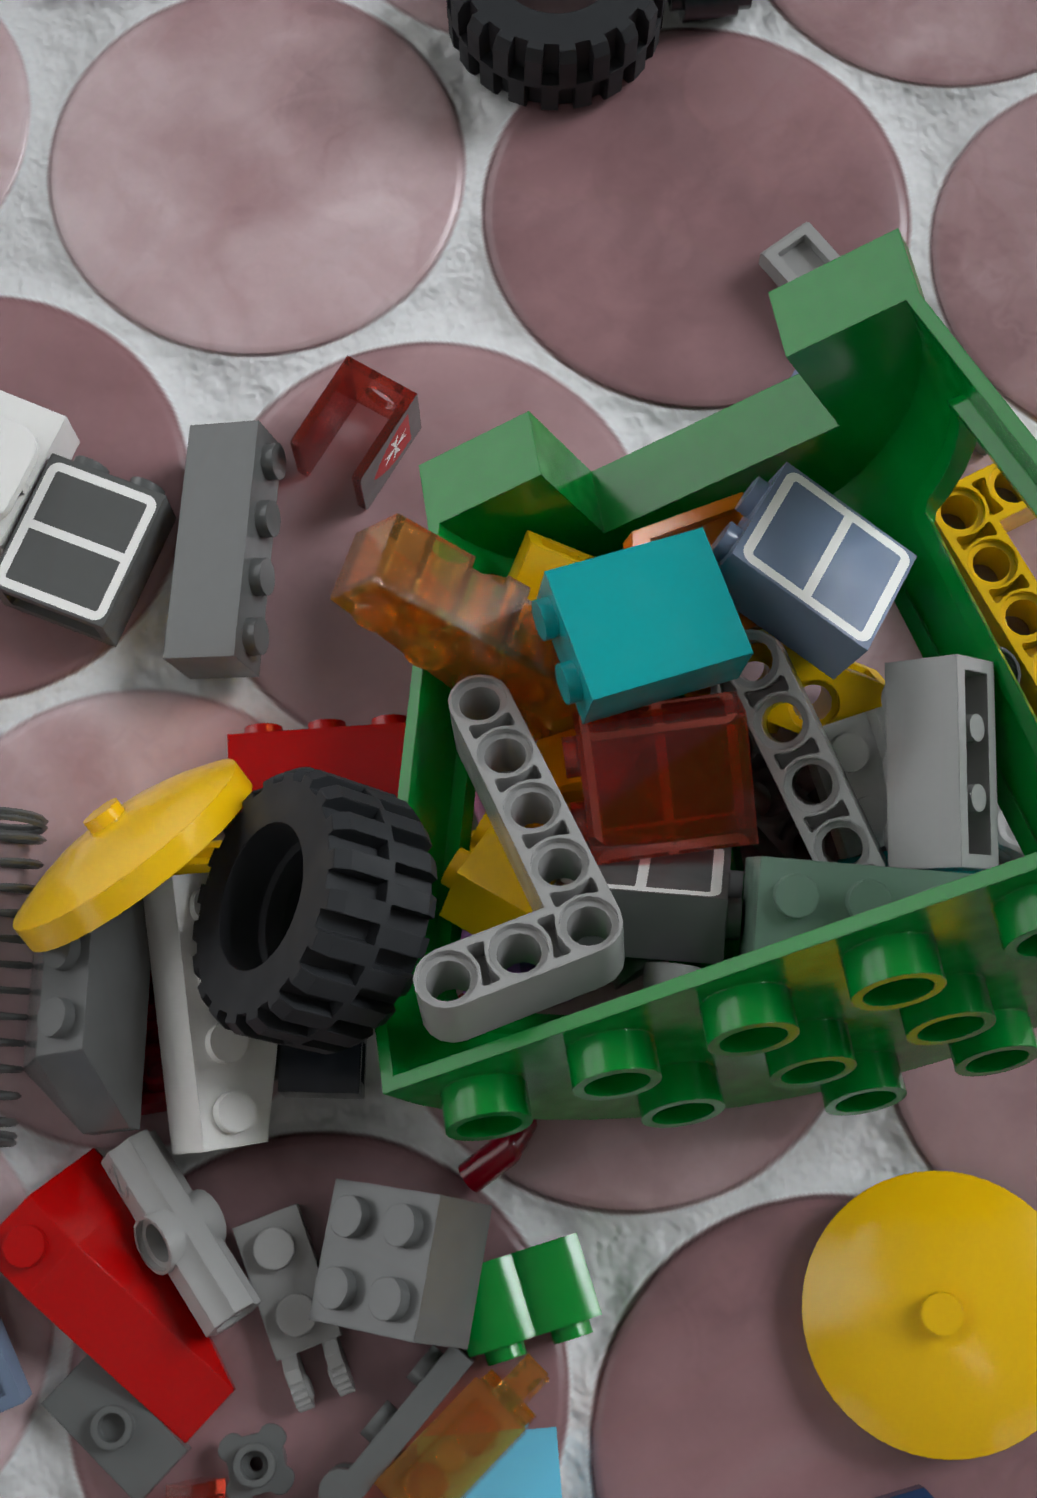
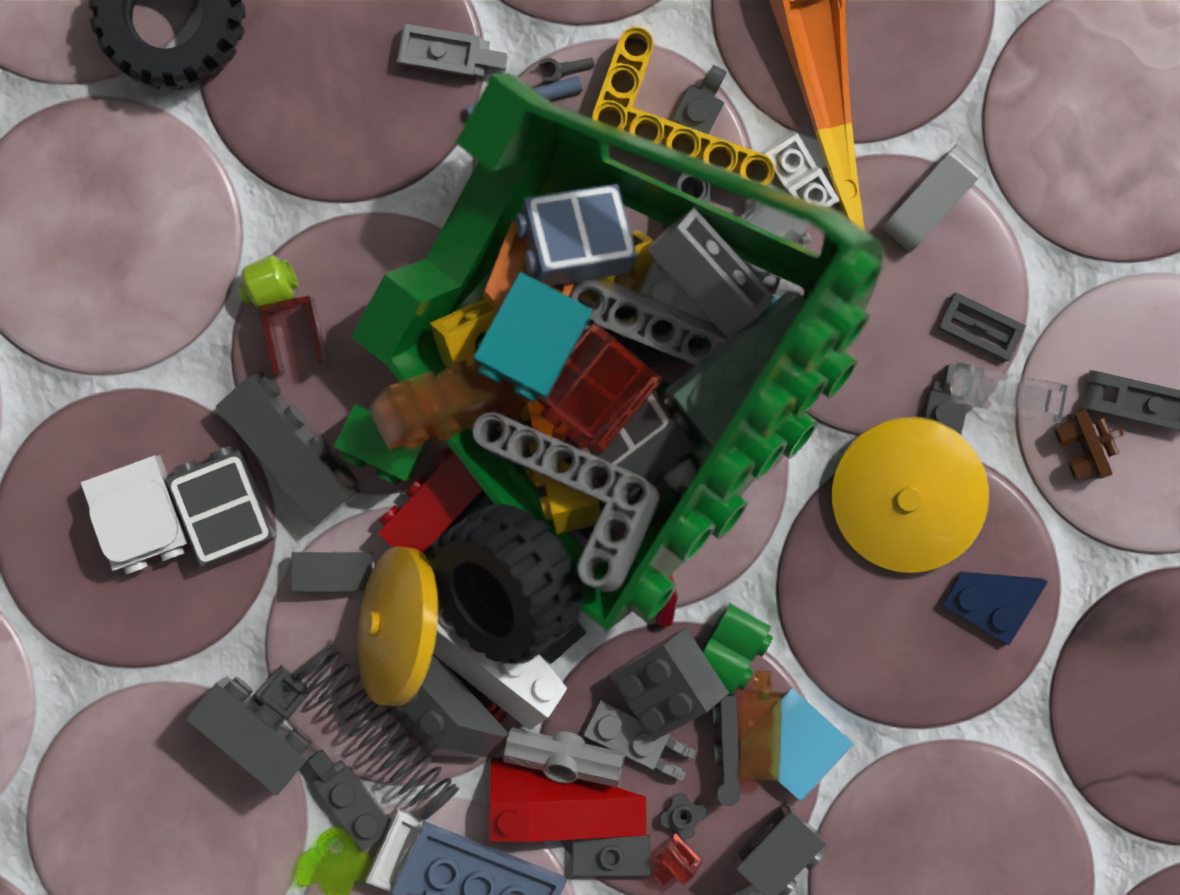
camera: 45 degrees left, 15 degrees up
(129, 732) = (330, 571): none -> dark grey slope
(339, 660) = (364, 444): none -> green brick
(389, 347) = (268, 281): none -> lime head

